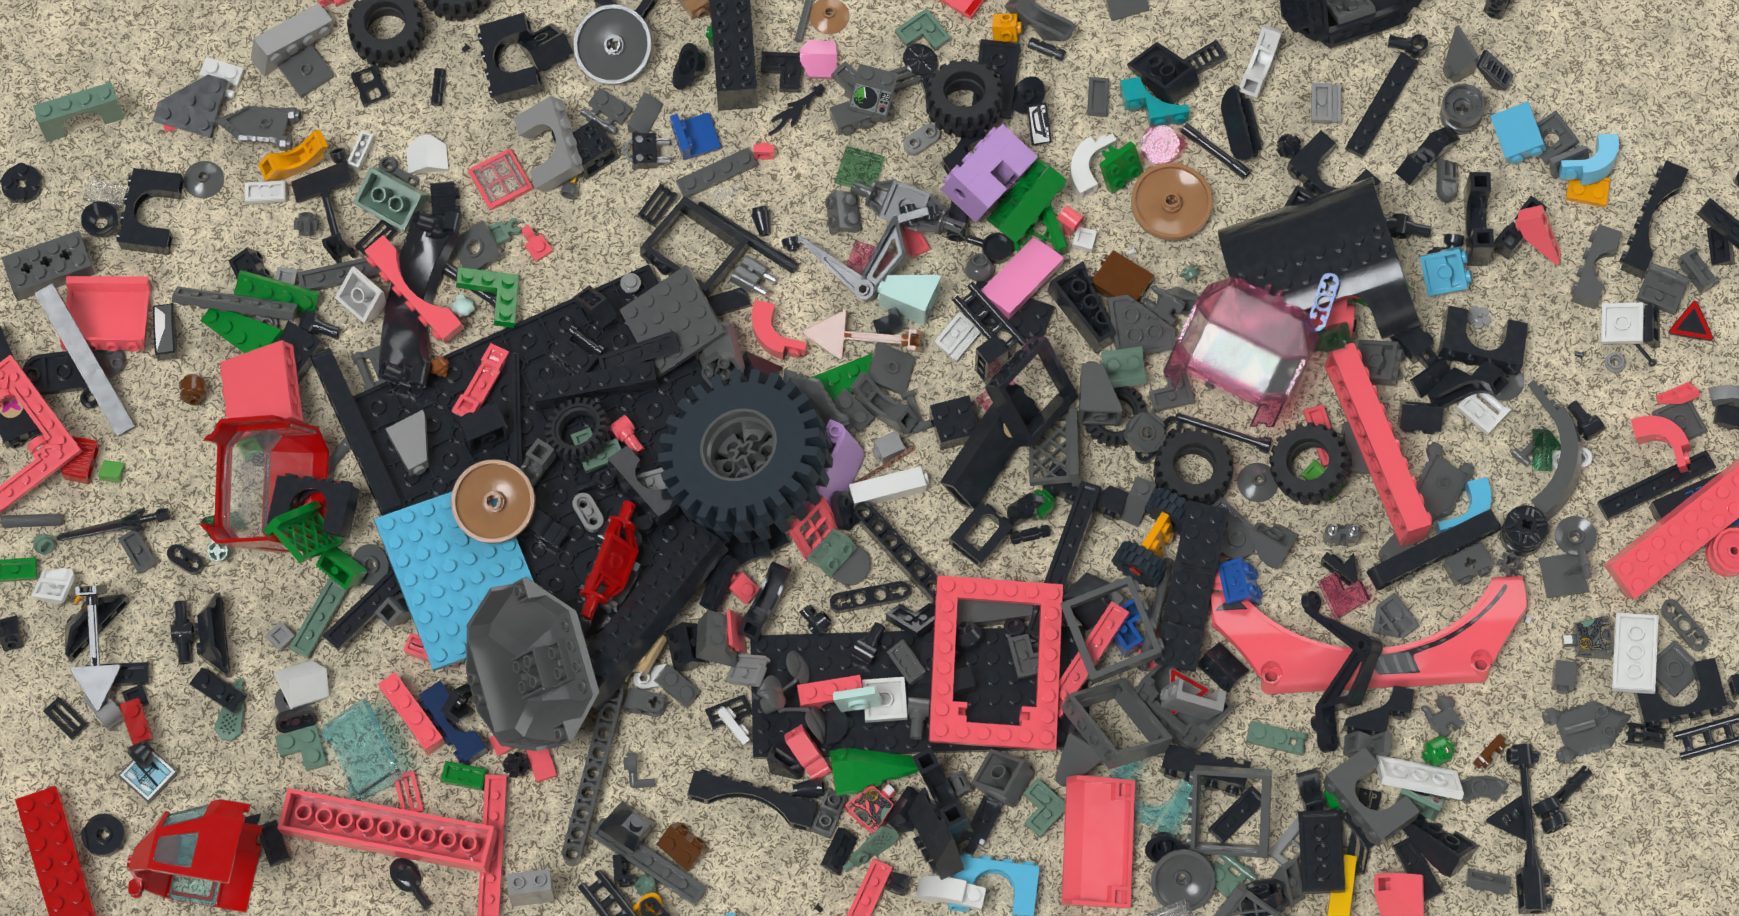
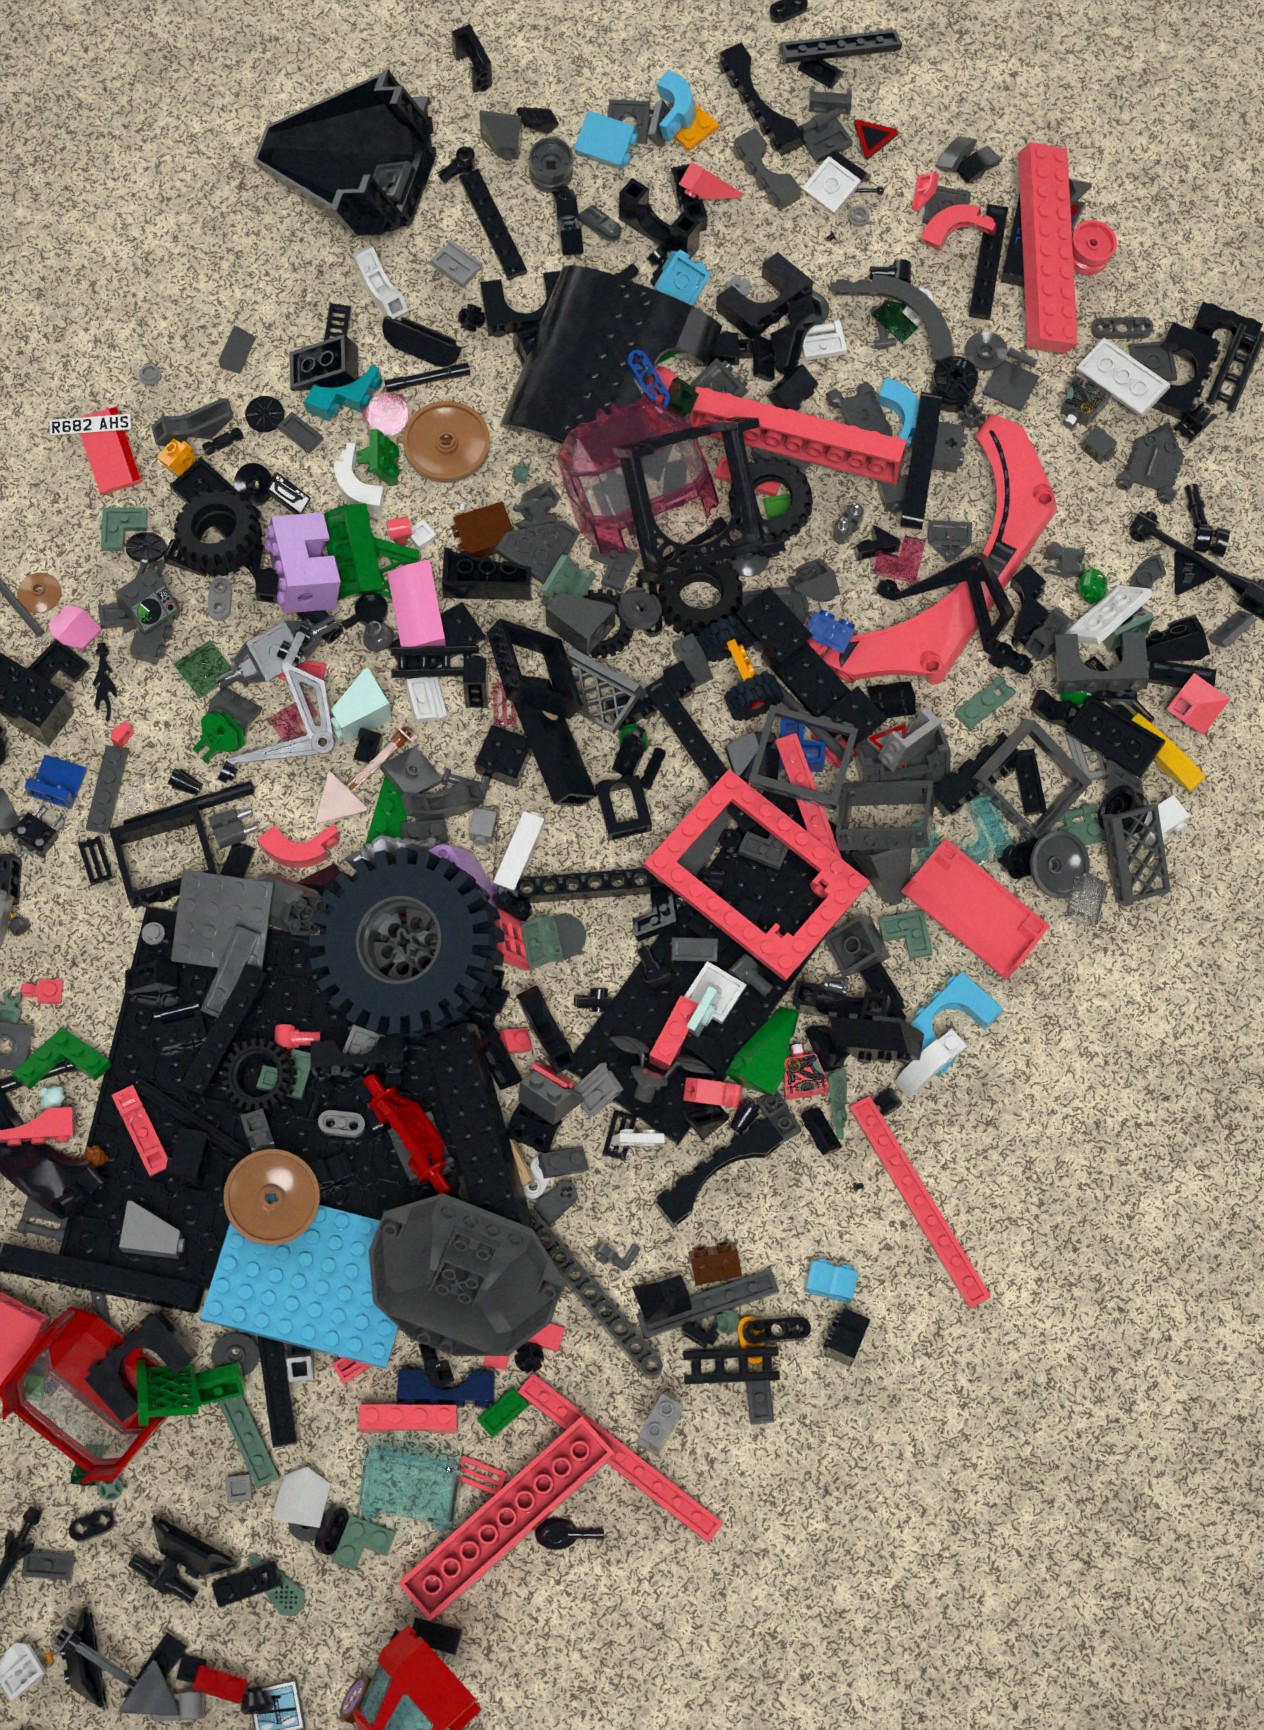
camera: 55 degrees left, 0 degrees up
(813, 215) = (219, 735): none -> green hinge
(868, 593) = (605, 940): black beam -> none
(1092, 61) = (264, 414): none -> black wheel
(1178, 416) = (755, 535): none -> black arch
(1484, 758) = (1120, 541): reddish brown plate -> none

